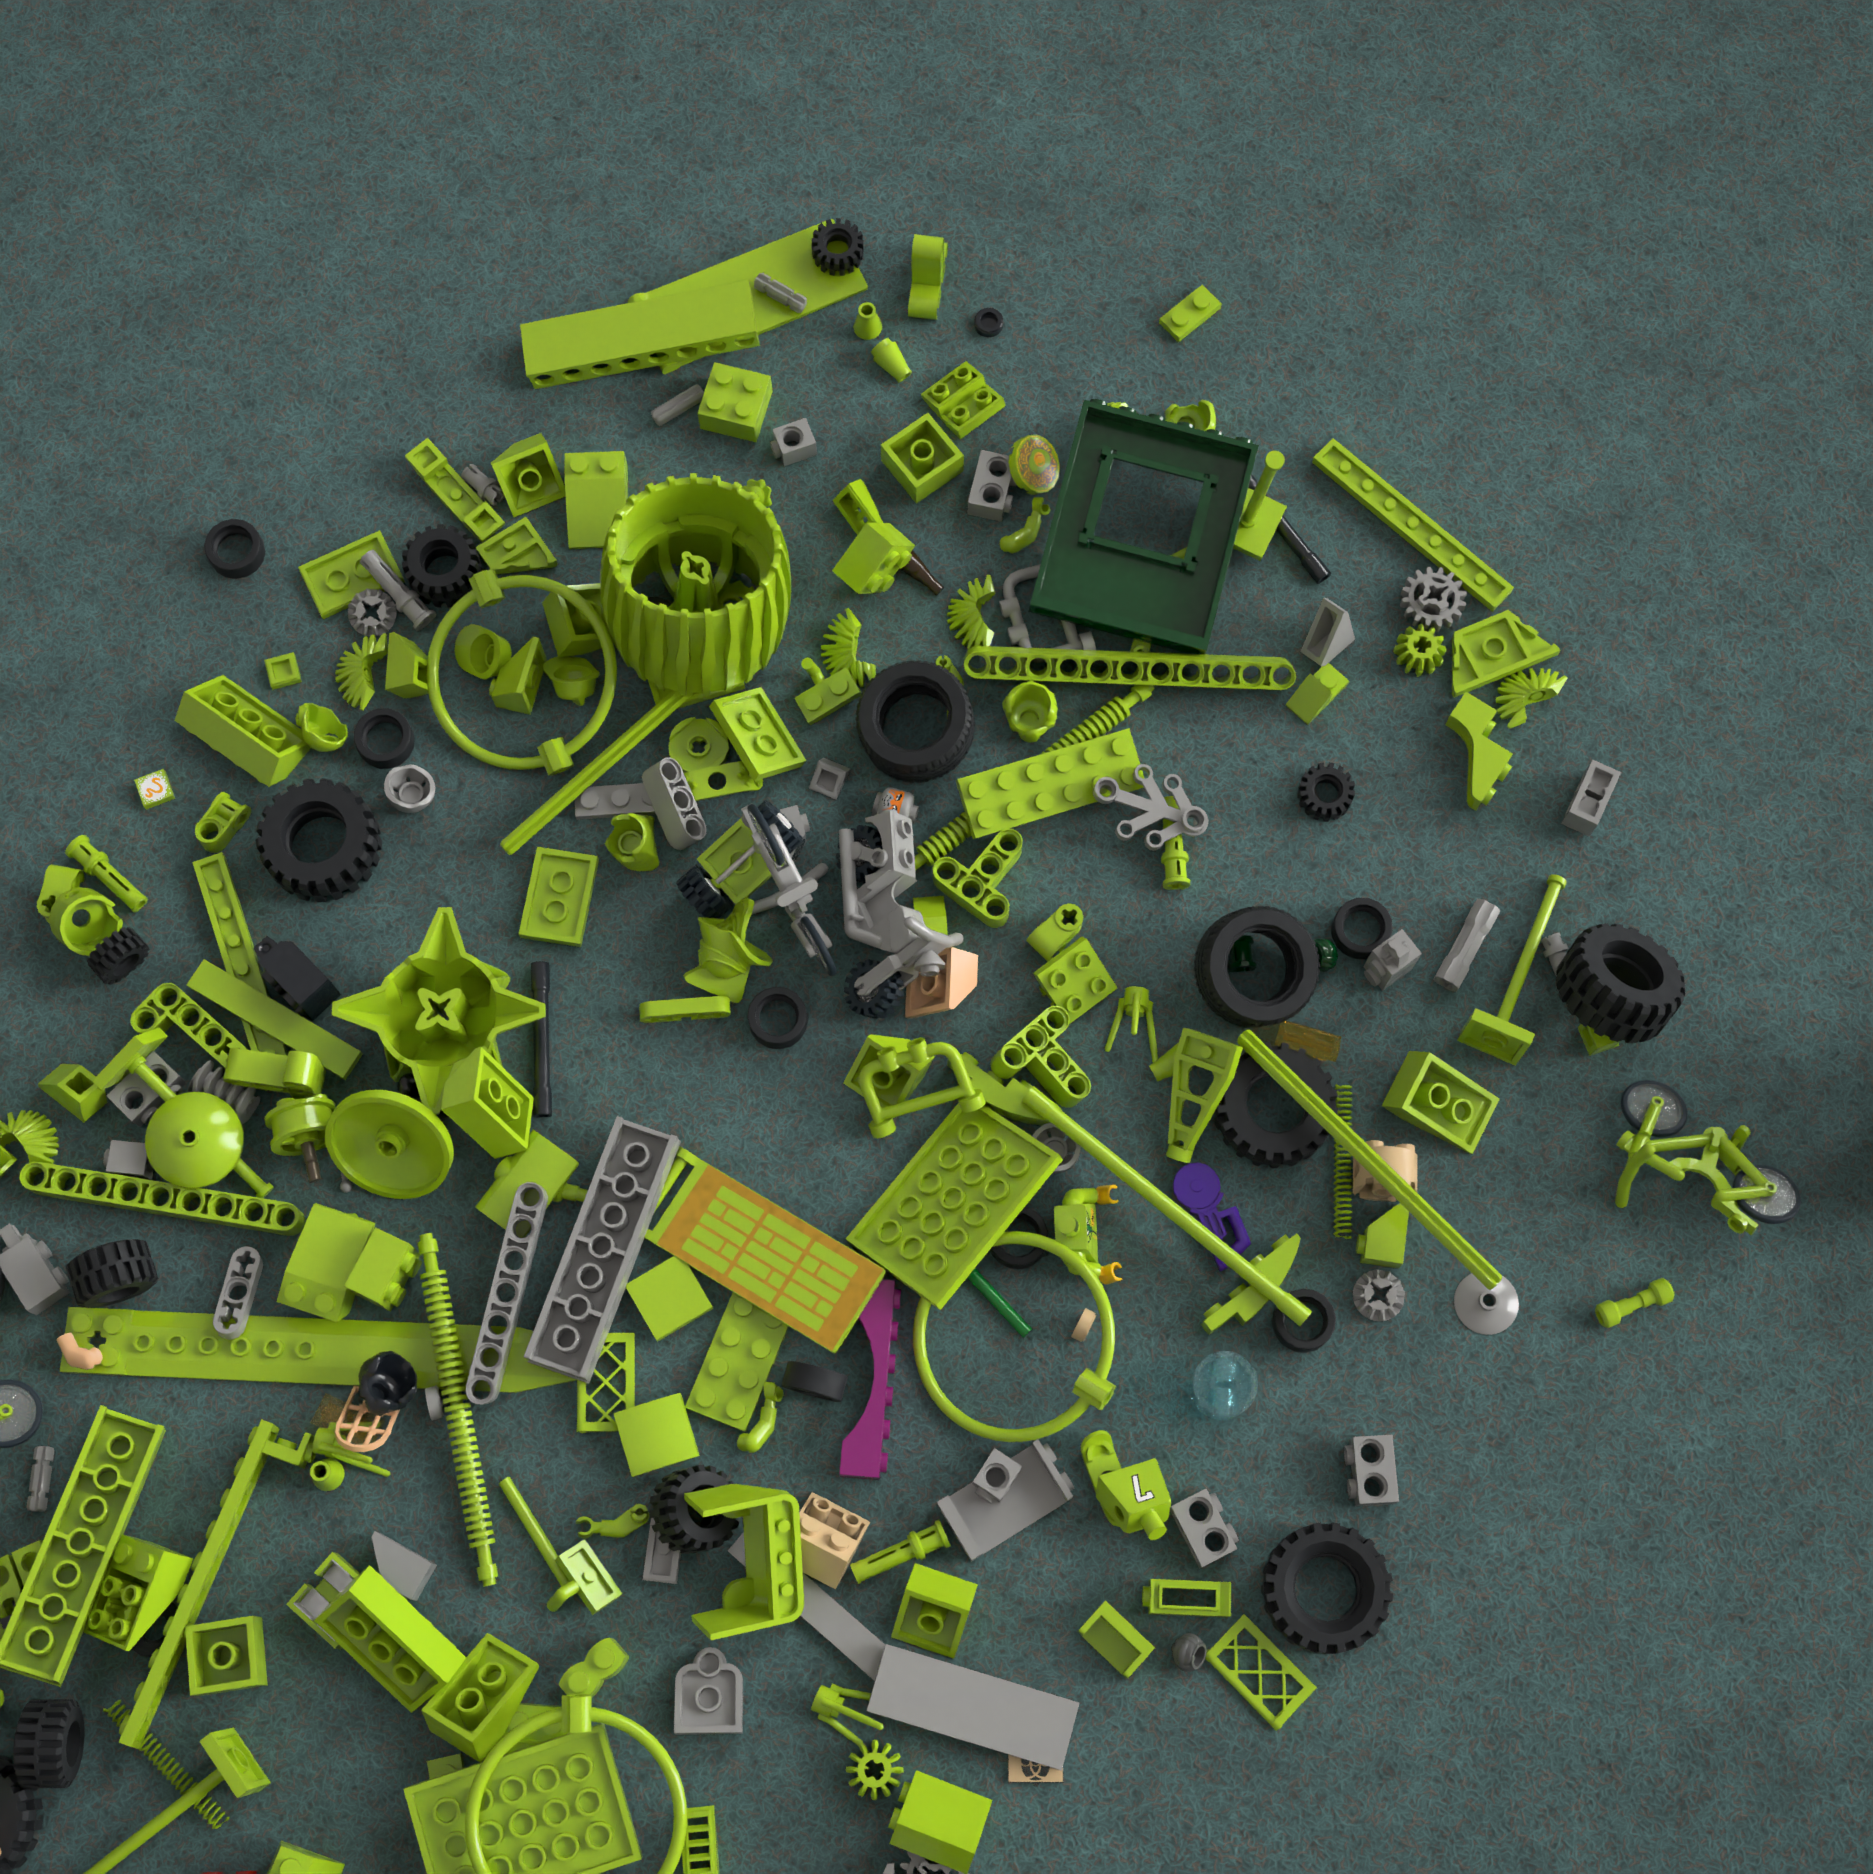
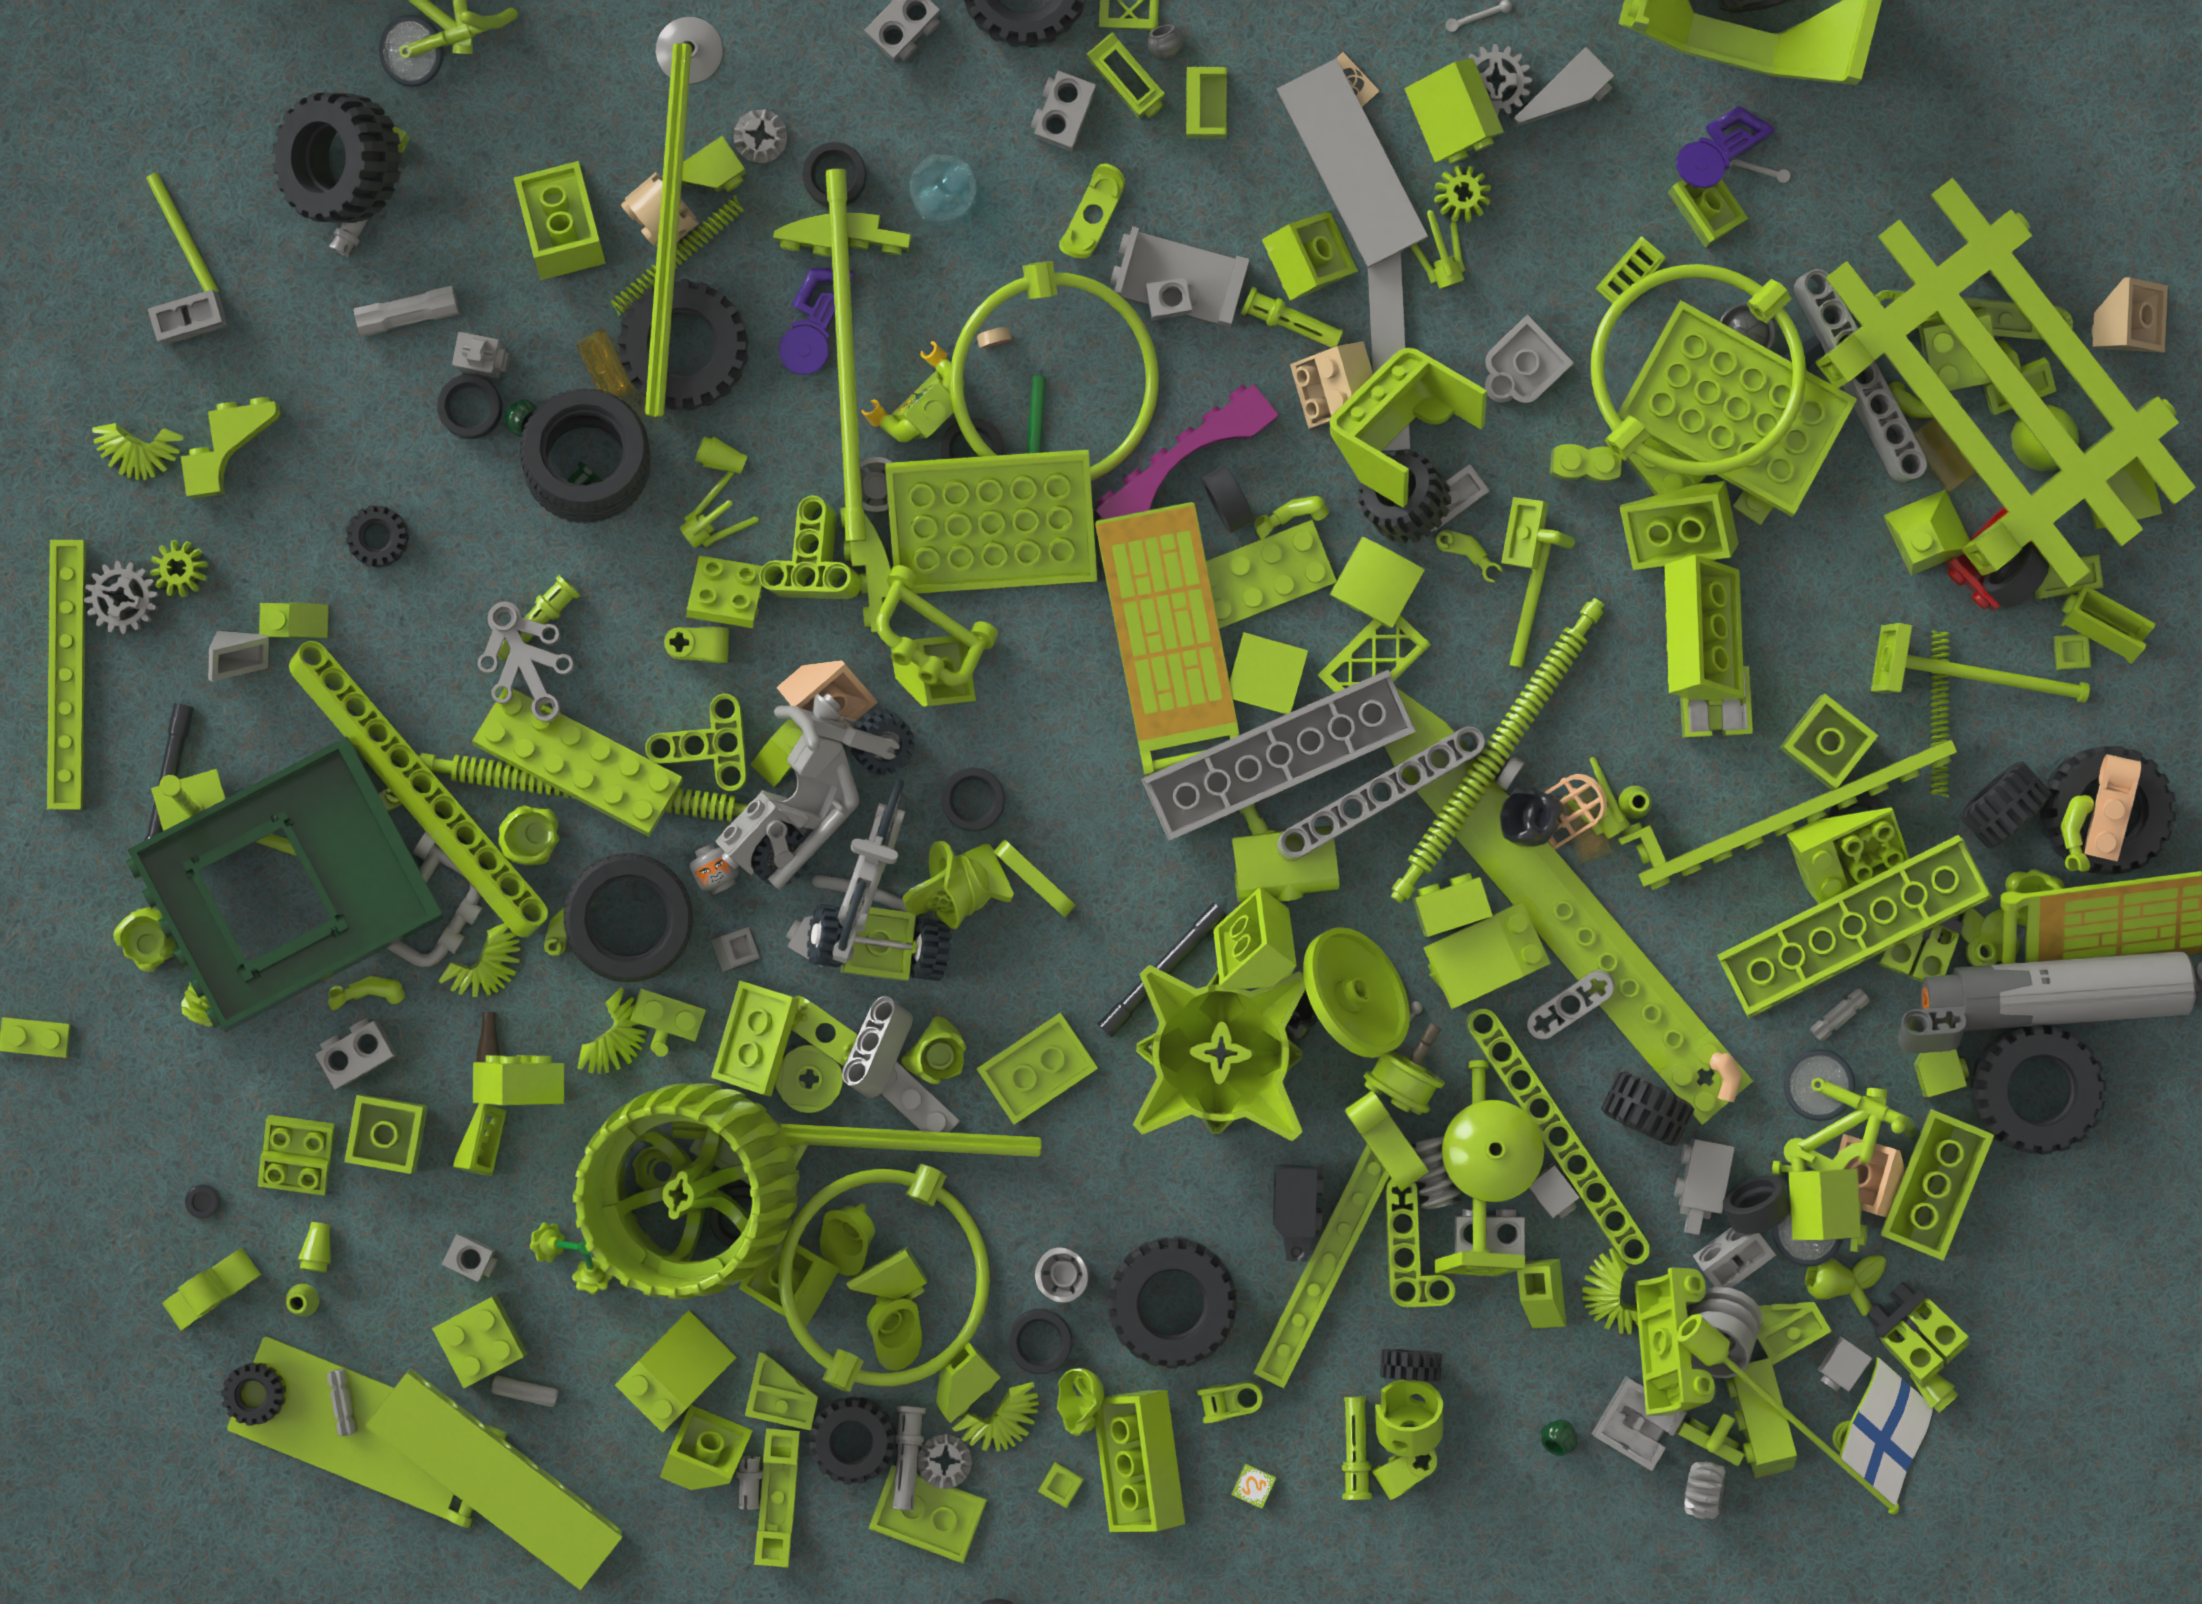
camera: 130 degrees left, 15 degrees up
(274, 1018) = (1344, 1190): lime tile -> none
(401, 1567) = (1646, 678): light grey slope -> none
(1034, 464) = (305, 1034): tile -> none
(1136, 1498) = (1090, 177): lime torso -> none
(1208, 1053) = (694, 425): lime plate -> none
(1495, 650) = (122, 507): lime wing -> none
(1496, 1034) = (465, 221): lime tile -> none
(1653, 848) = (181, 232): none -> lime bar

